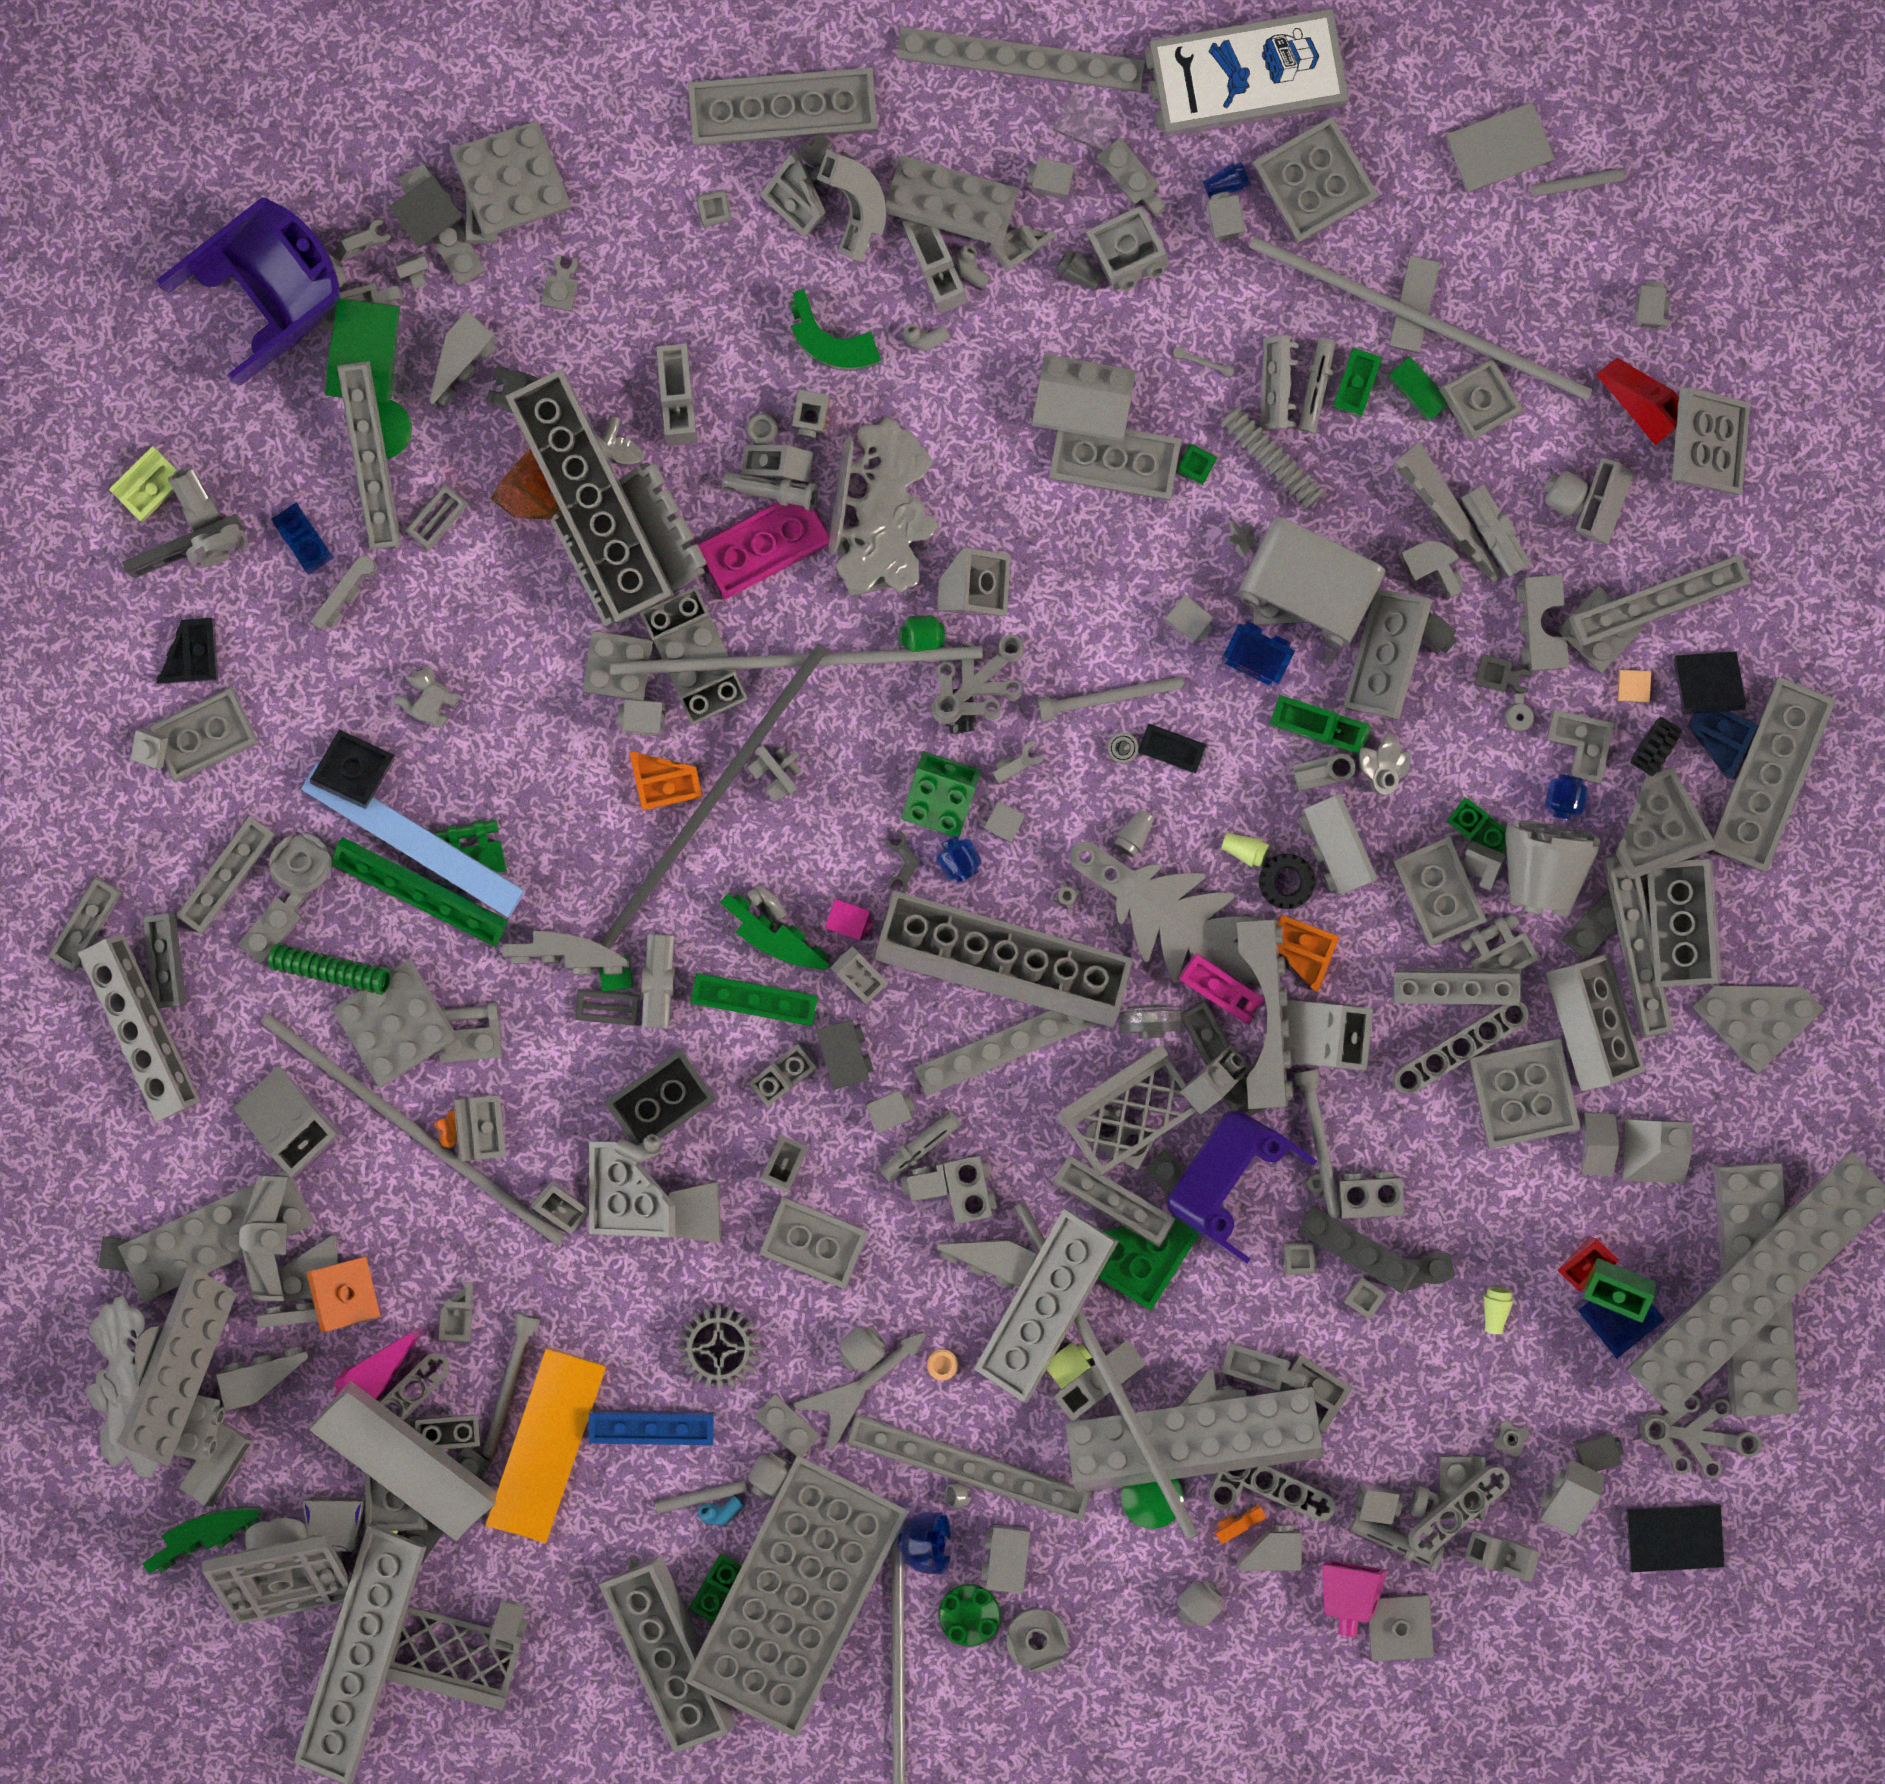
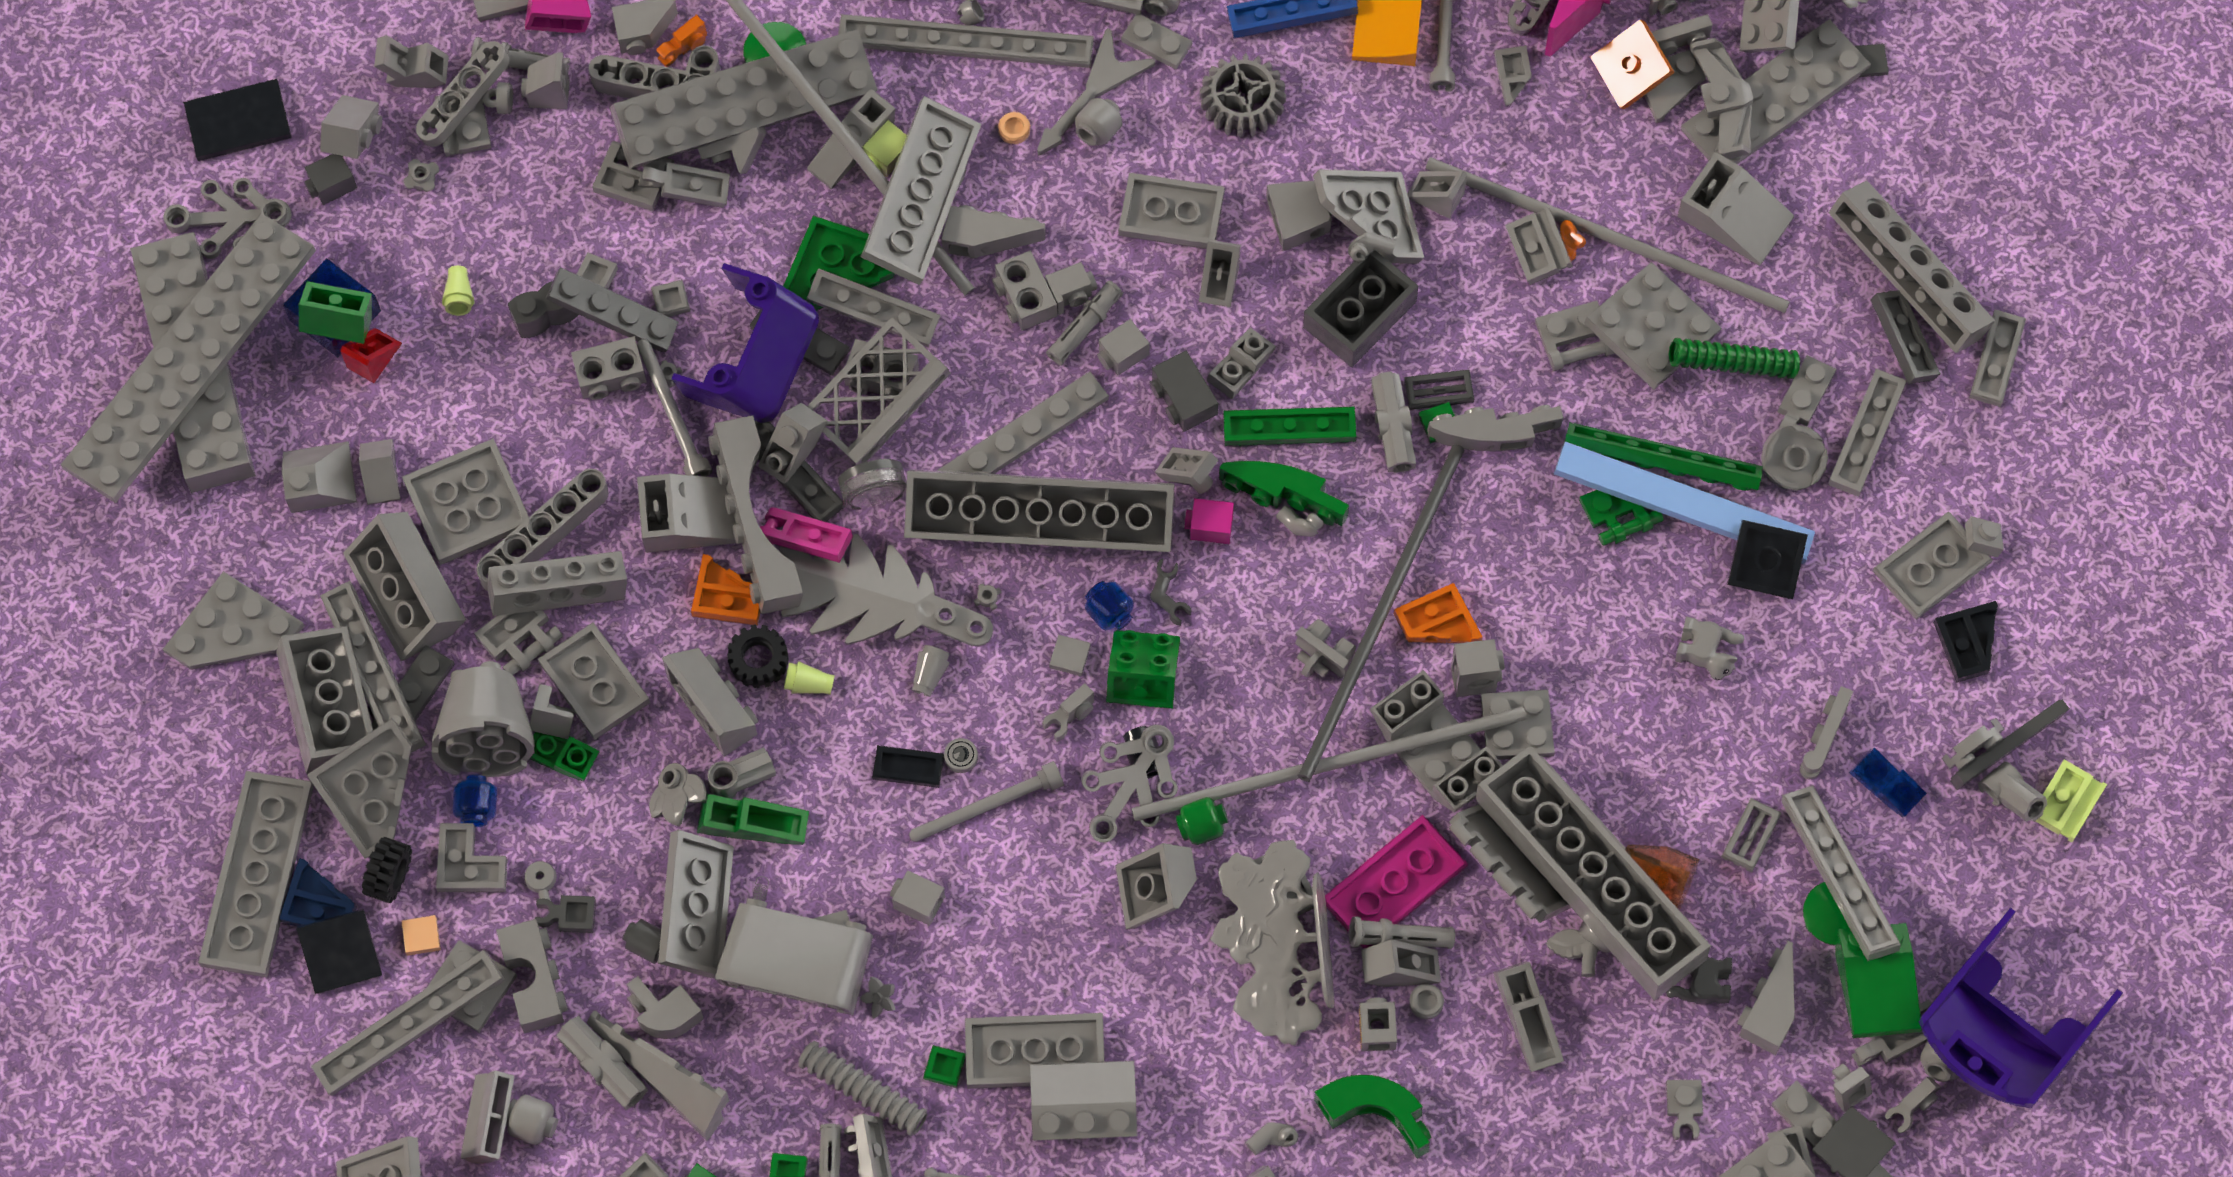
camera: 170 degrees right, 20 degrees down
(1257, 654) = (836, 870): clear blue brick -> none

